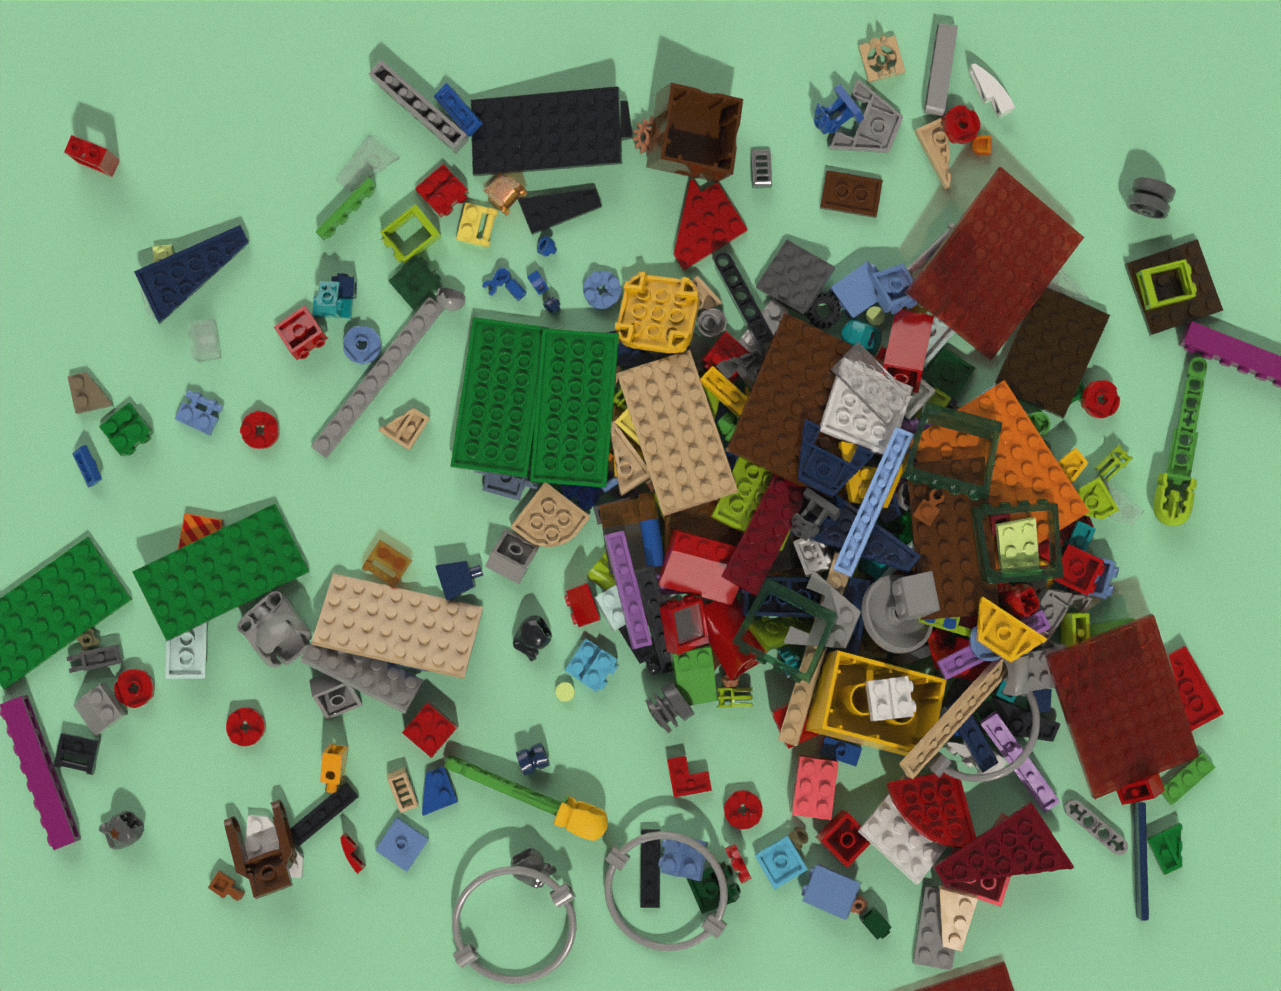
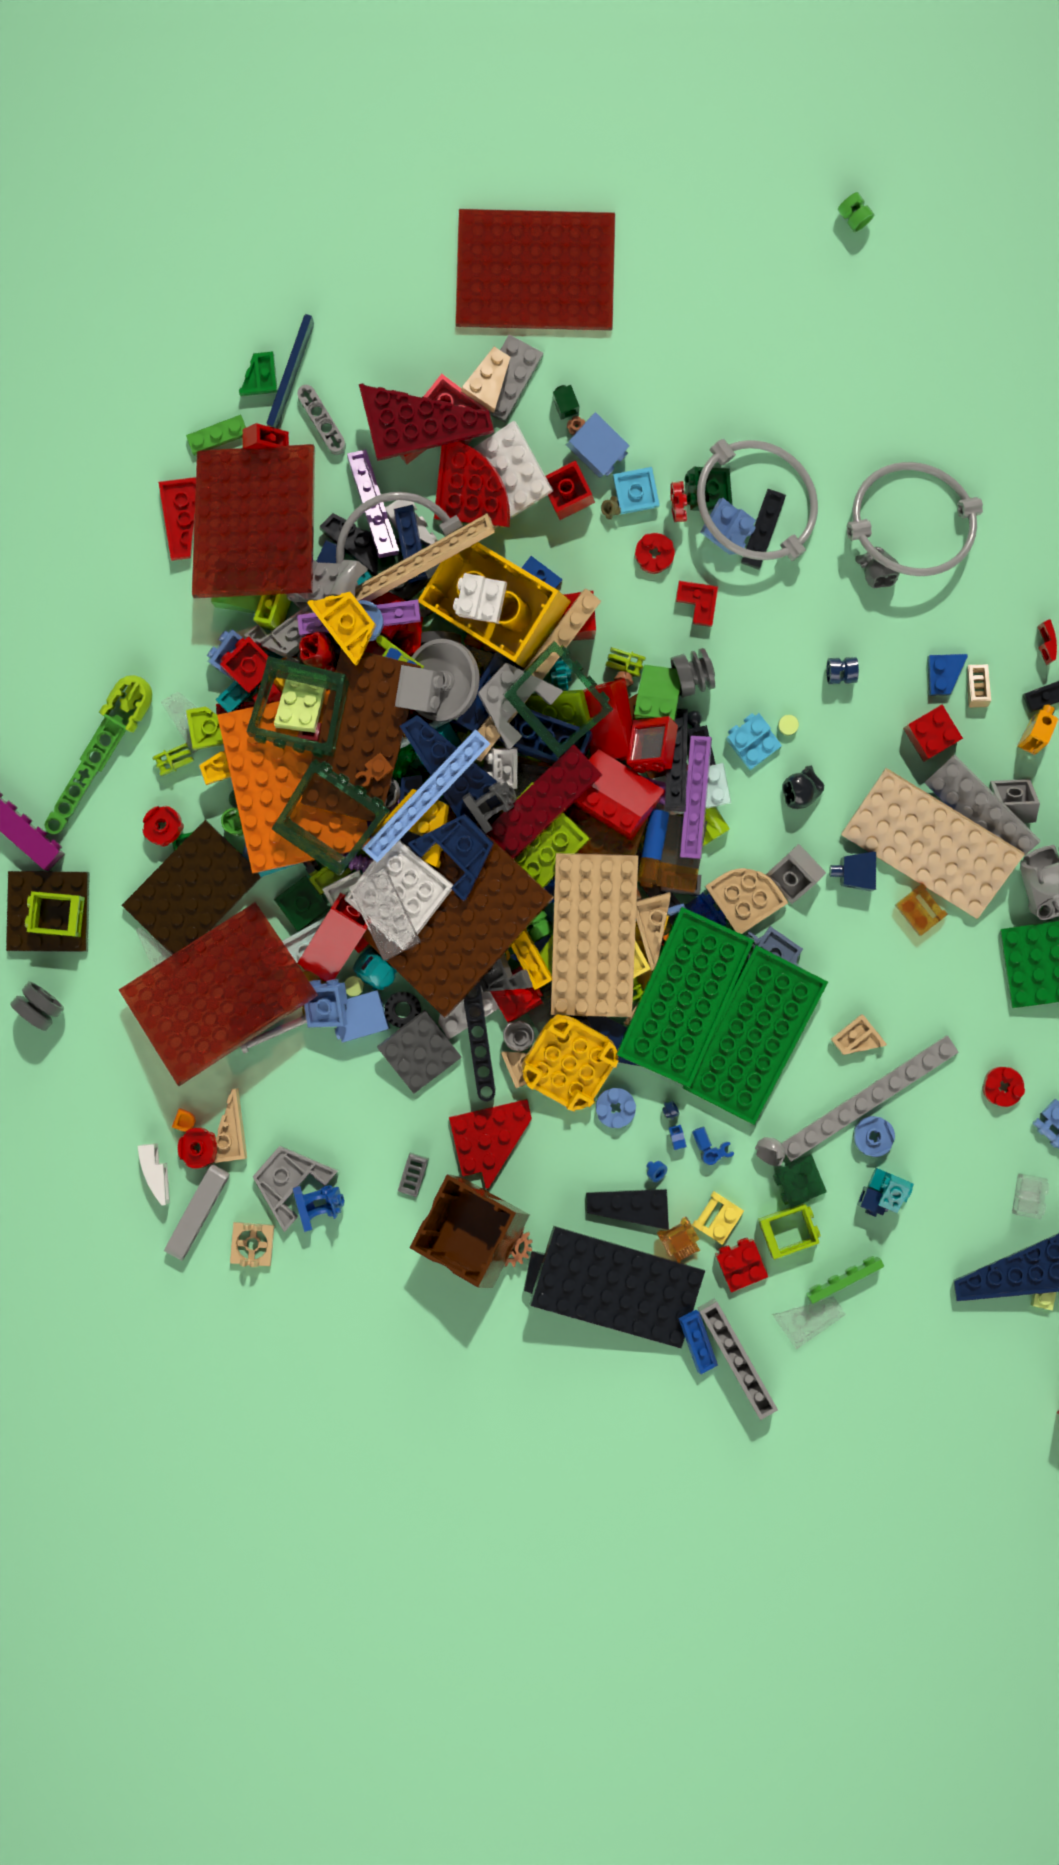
camera: 155 degrees left, 0 degrees up
(301, 333) = (931, 1168): red plate -> none
(402, 844) = (996, 634): medium blue plate -> none
(577, 817) = (819, 600): piece -> none
(583, 605) = (742, 805): red slope -> none
(814, 787) = (579, 549): coral brick -> none
(851, 194) = (332, 1117): reddish brown tile -> none

